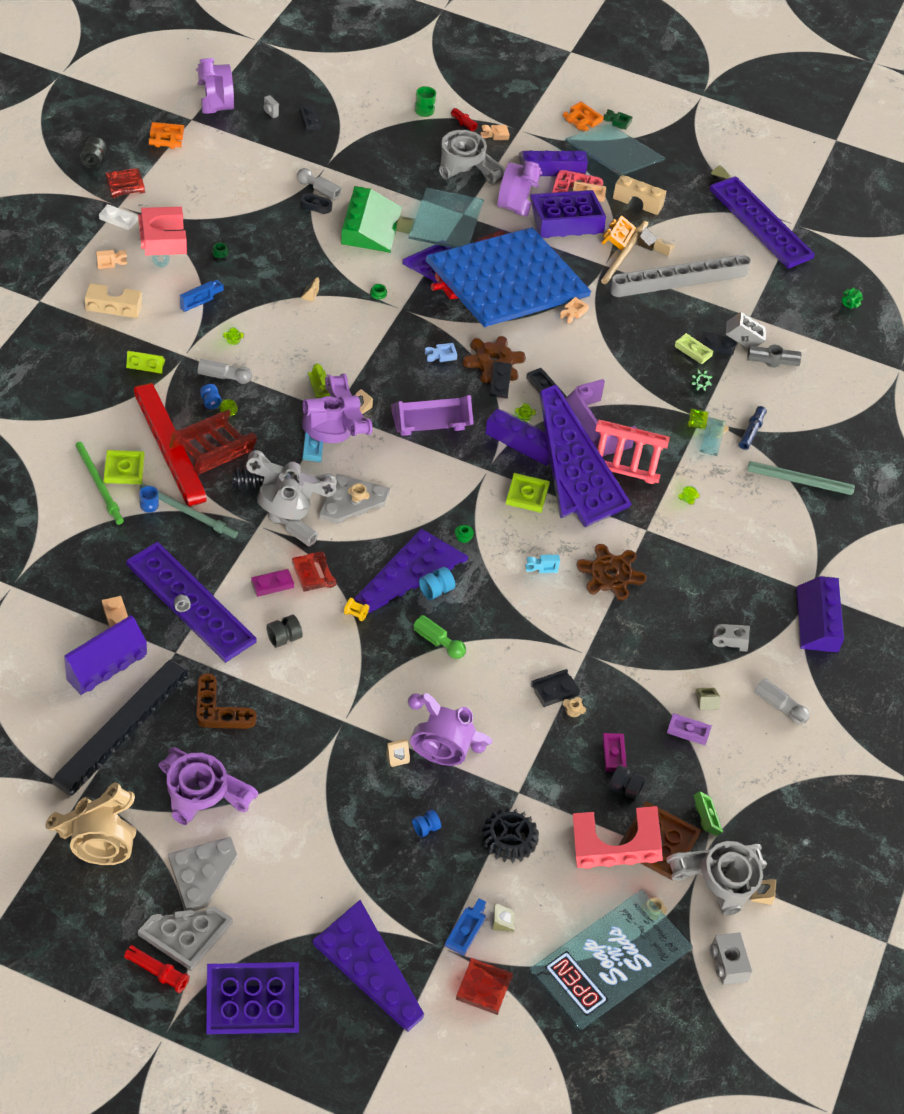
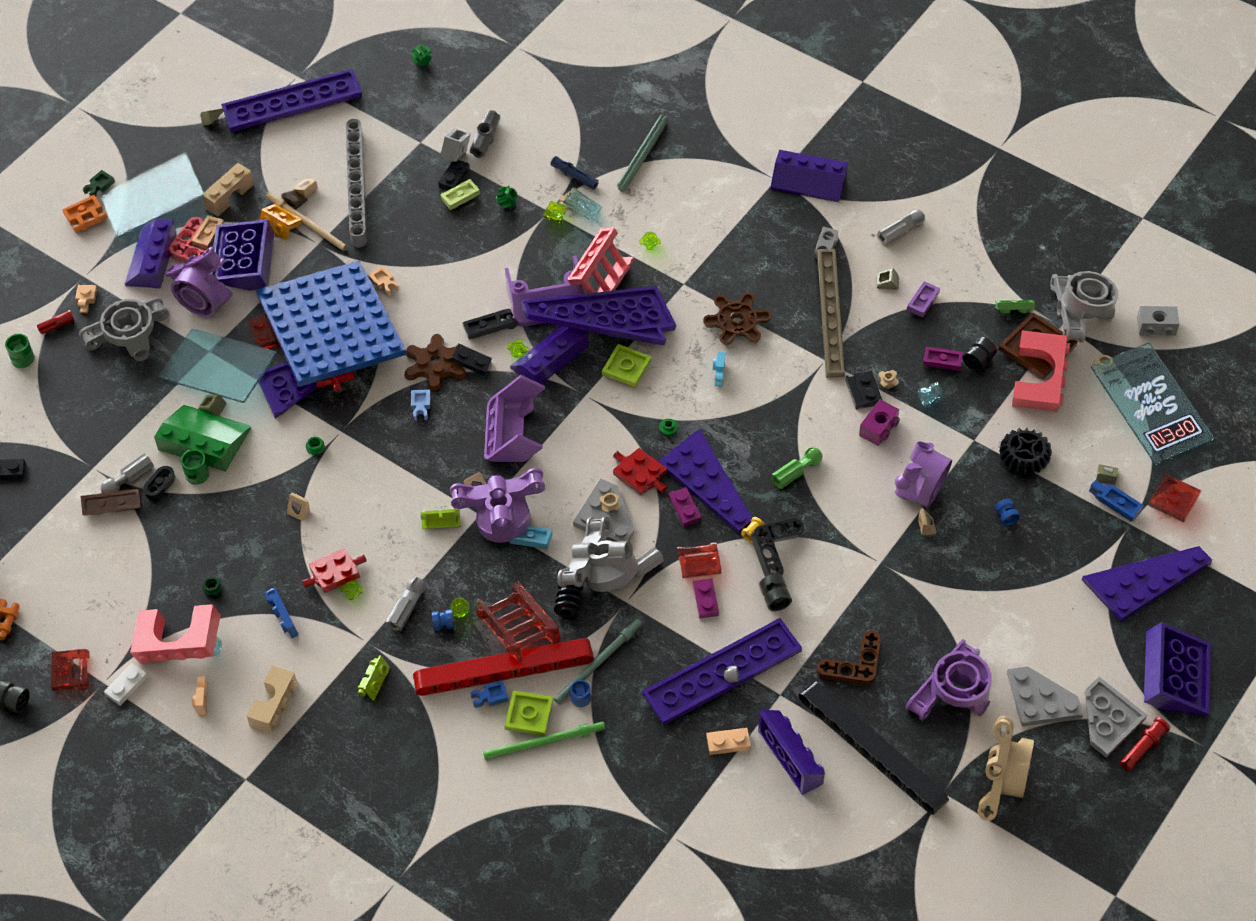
camera: 70 degrees left, 5 degrees up
(140, 440) = (493, 694): none -> blue plate
(249, 321) = (334, 570): none -> plate
(289, 178) = (111, 502): none -> reddish brown plate
(334, 218) = (195, 466): none -> green wheel
(346, 619) = (770, 538): none -> black beam
(374, 556) = (684, 507): none -> magenta plate
(406, 517) = (640, 471): none -> red plate
(437, 582) = (733, 457): dark azure wheel -> none
(522, 699) = (881, 413): none -> magenta brick
(562, 743) = (930, 394): none -> clear light blue wheel
(642, 647) = (830, 313): none -> dark tan tile

